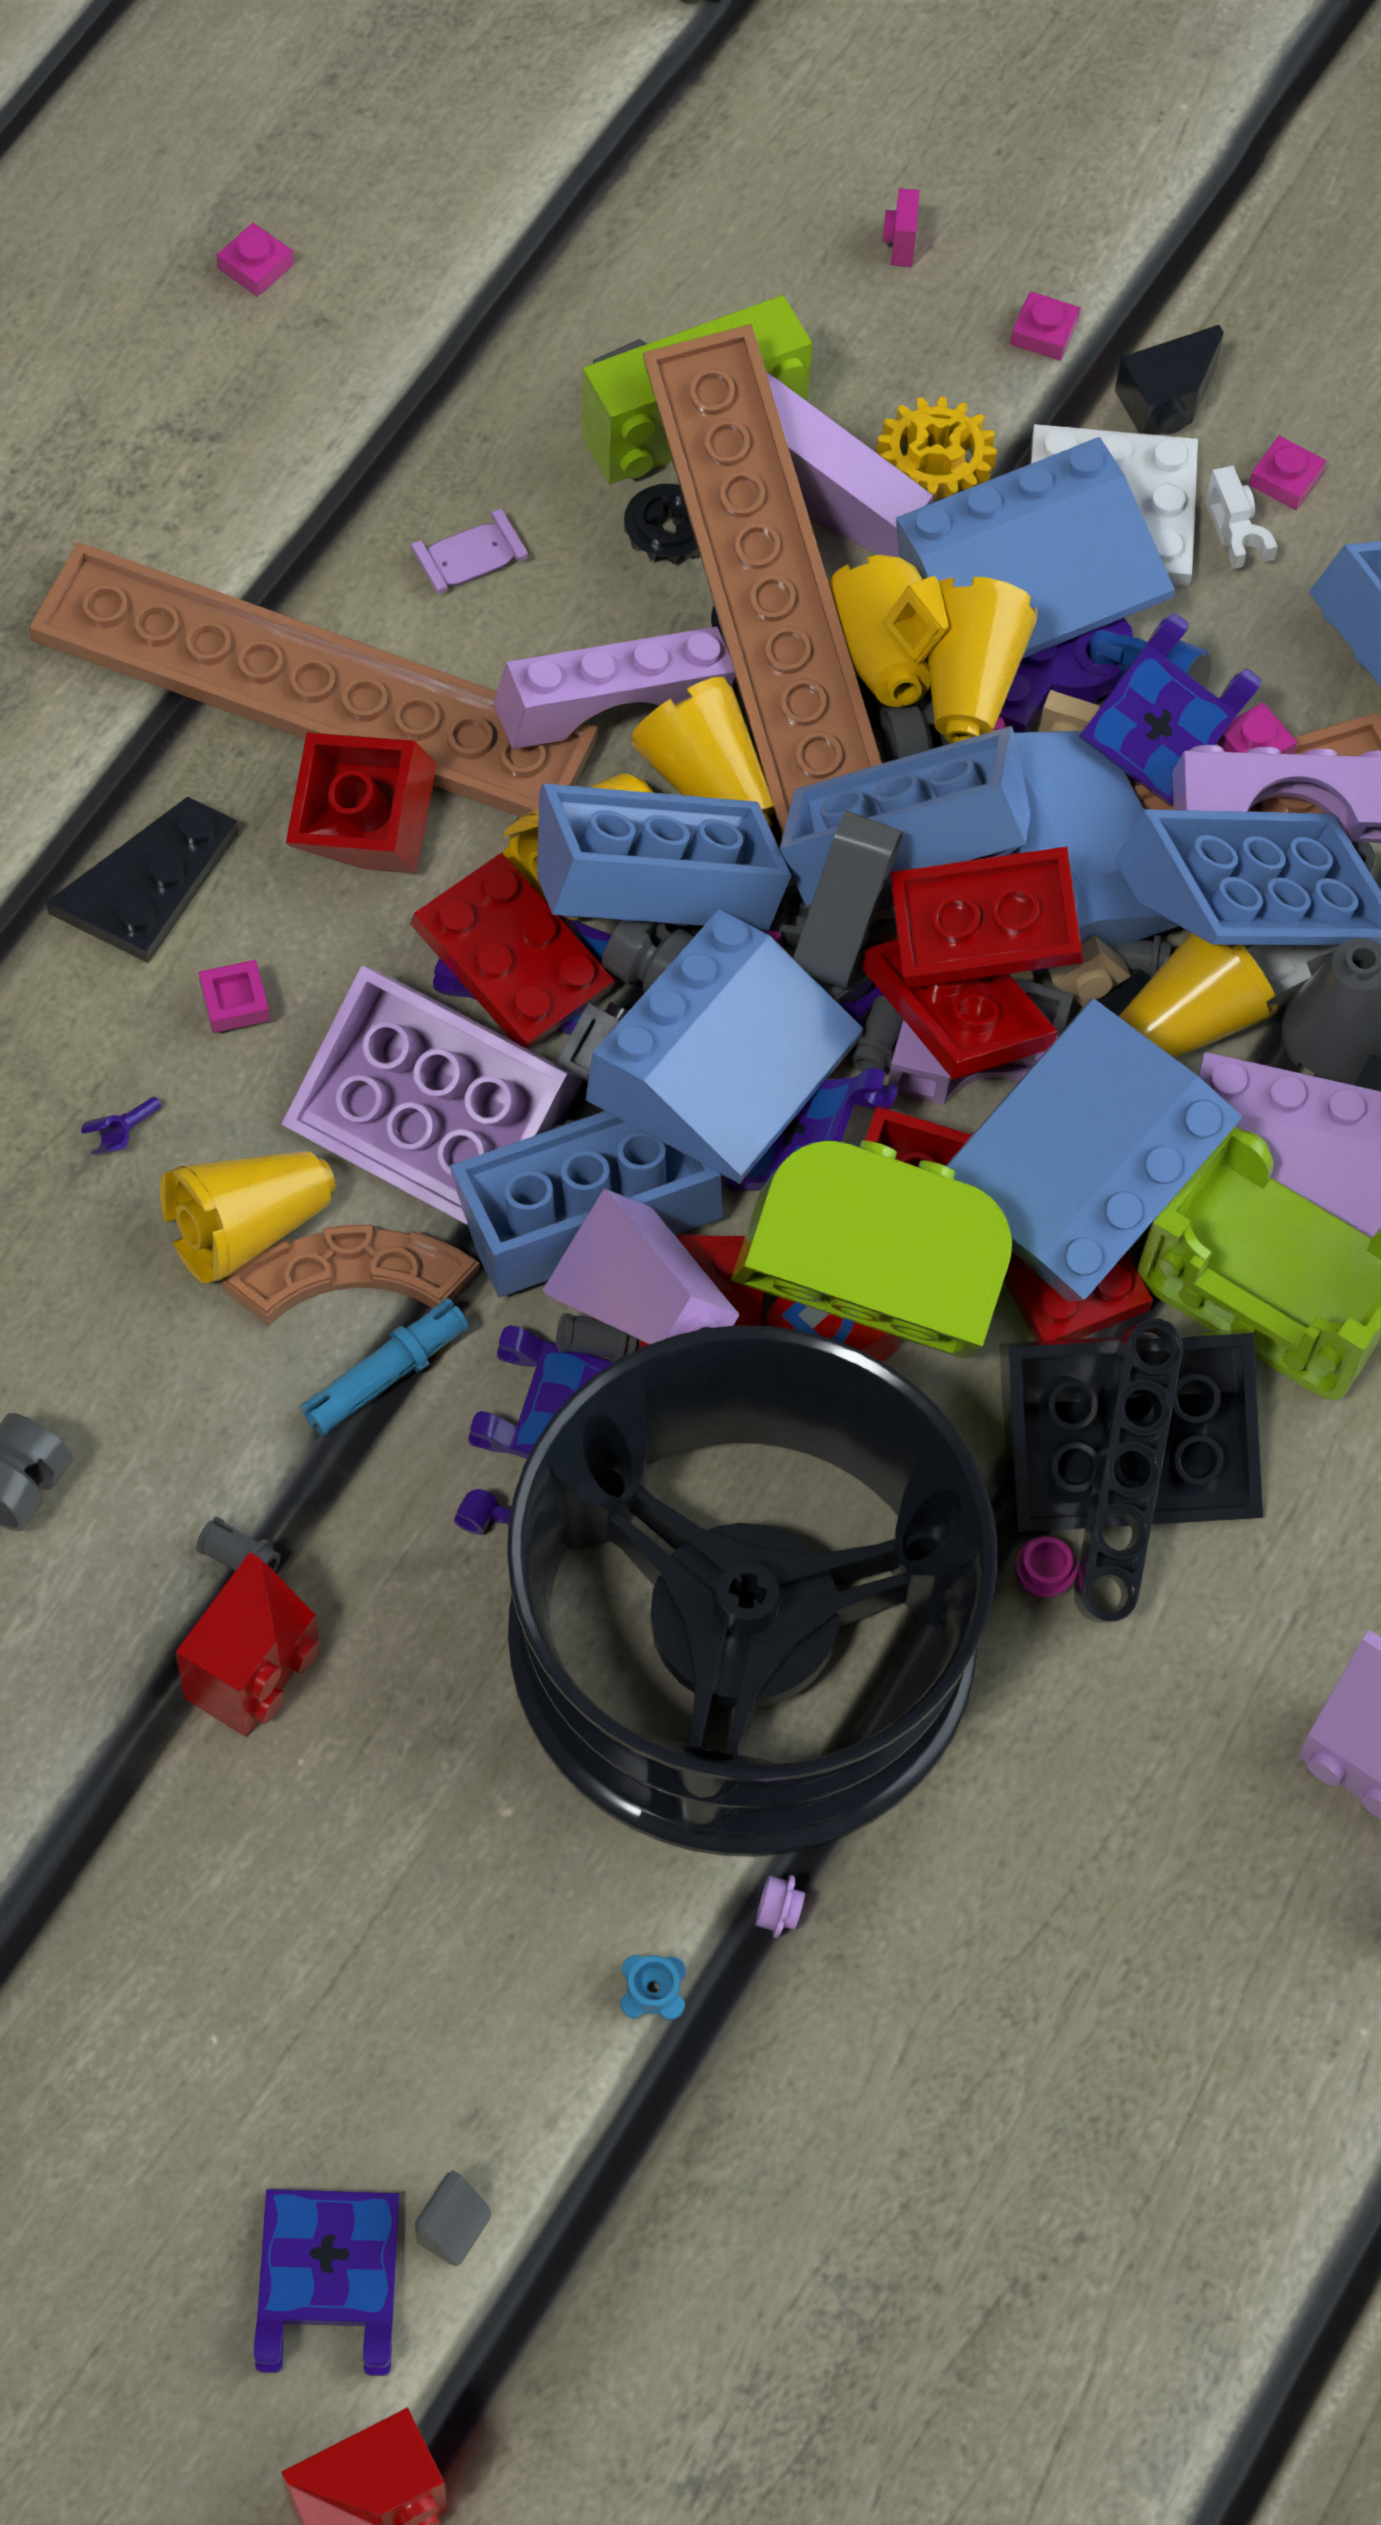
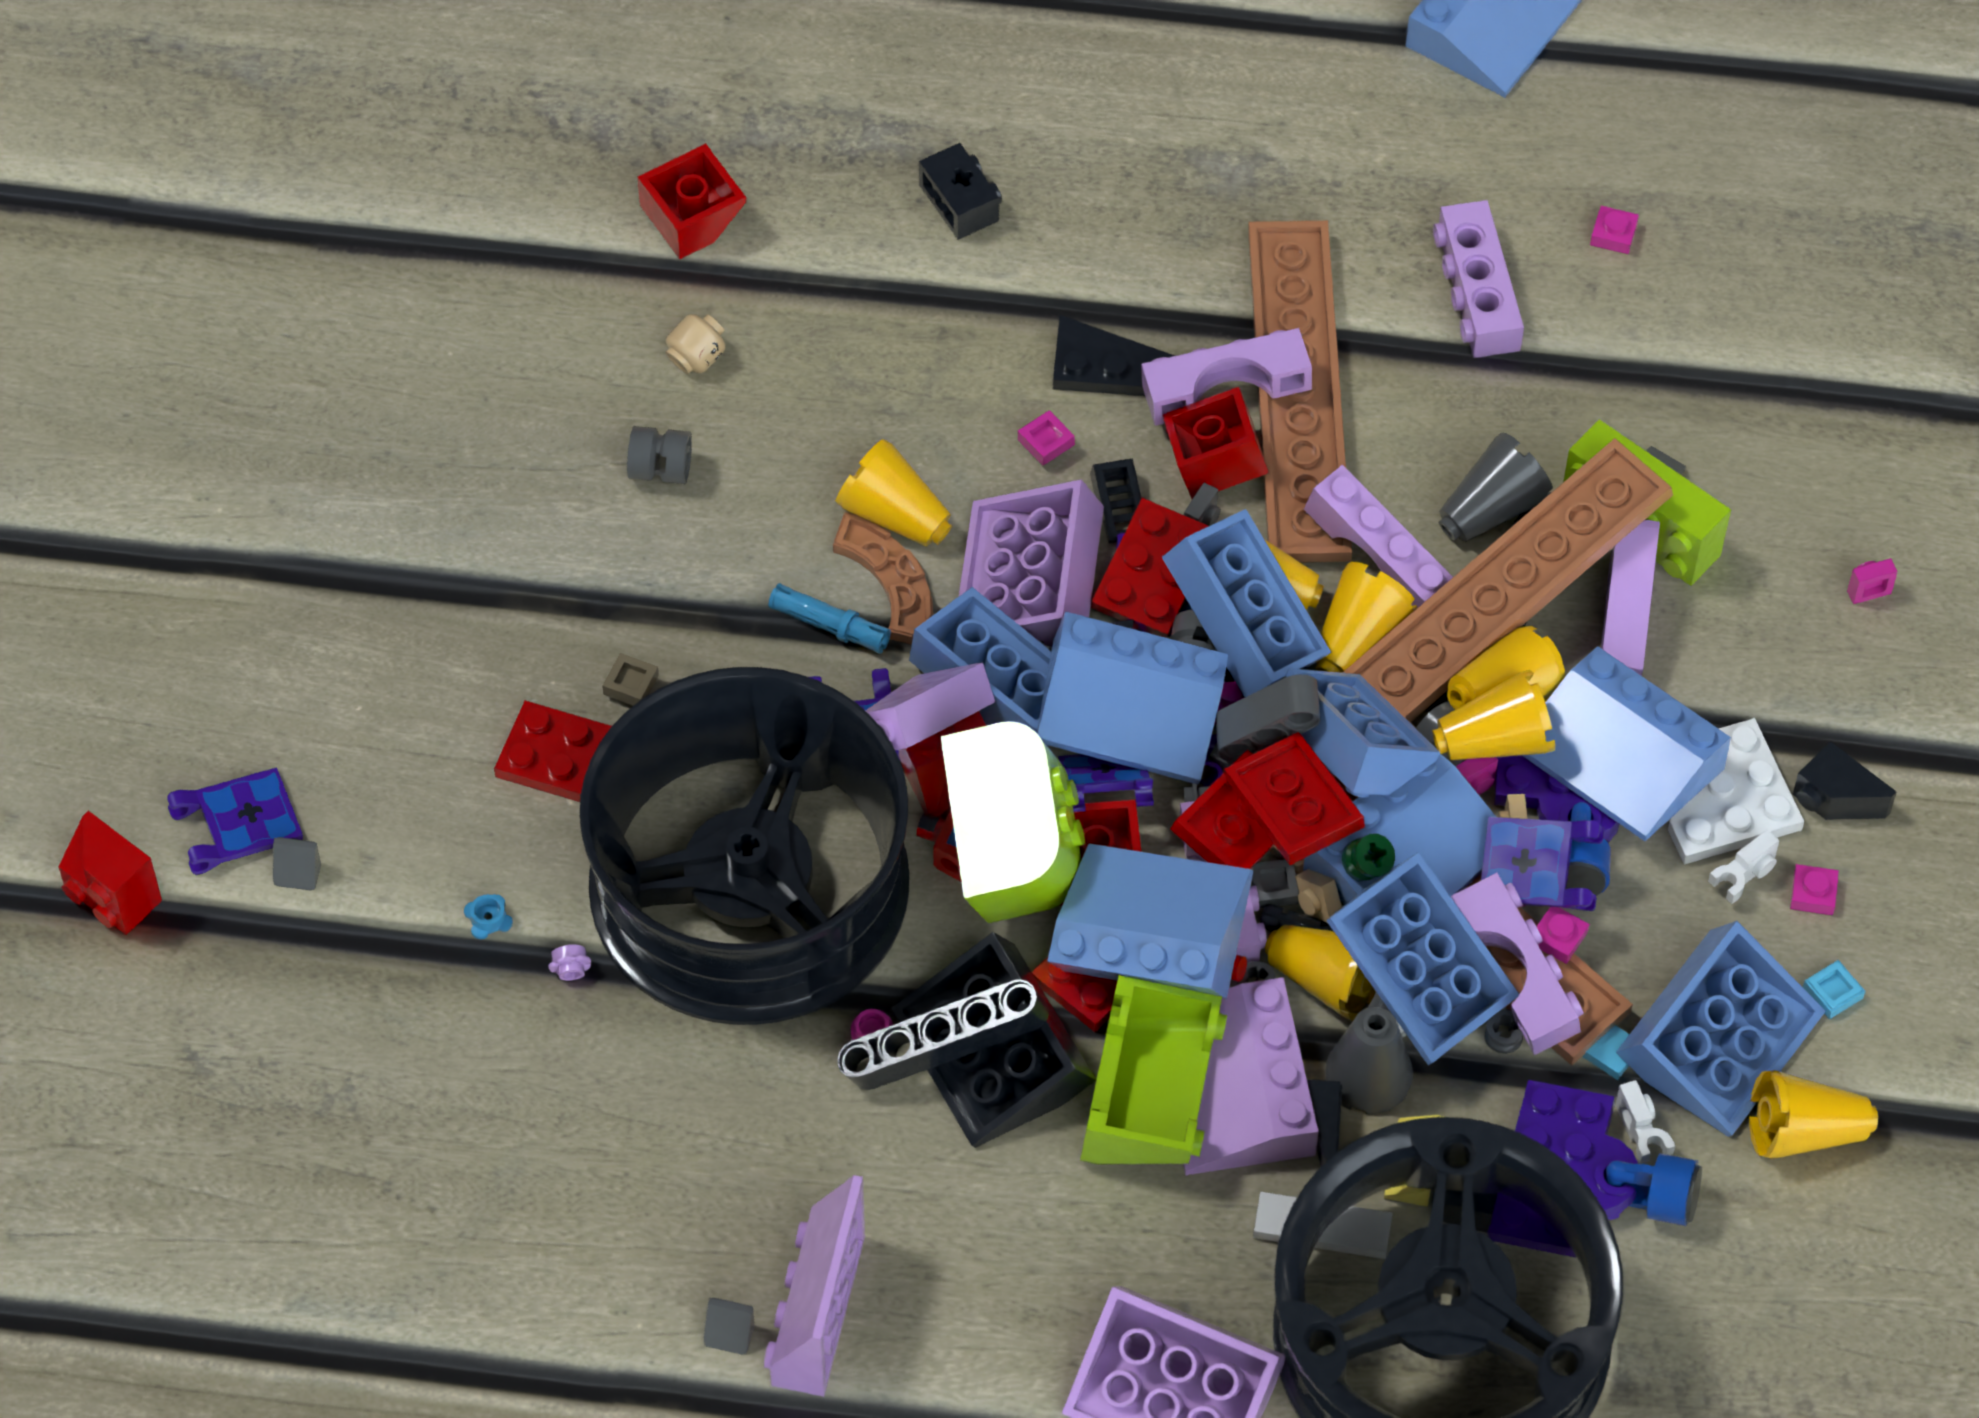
camera: 70 degrees right, 5 degrees down
(116, 1128) = (925, 417): dark purple hand -> none
(232, 1546) = (666, 600): dark grey pin -> none
(247, 1648) = (598, 611): red slope -> none
(257, 421) = (1479, 279): none -> lavender brick
(283, 685) = (1271, 362): none -> lavender arch
(358, 931) = (1111, 472): none -> black slope
(361, 1654) = (630, 679): none -> dark tan plate
(438, 1784) = (549, 750): none -> red plate
(444, 861) = (1204, 506): none -> dark grey plate
(470, 553) = (1452, 435): lavender piece -> none
(590, 534) = (1494, 491): none -> dark grey cone
(918, 618) = (1499, 669): yellow slope -> none
(938, 447) = (1692, 666): yellow gear -> none
(1045, 325) = (1848, 699): dark pink plate -> none
(1107, 874) = (1358, 860): none -> dark green wheel

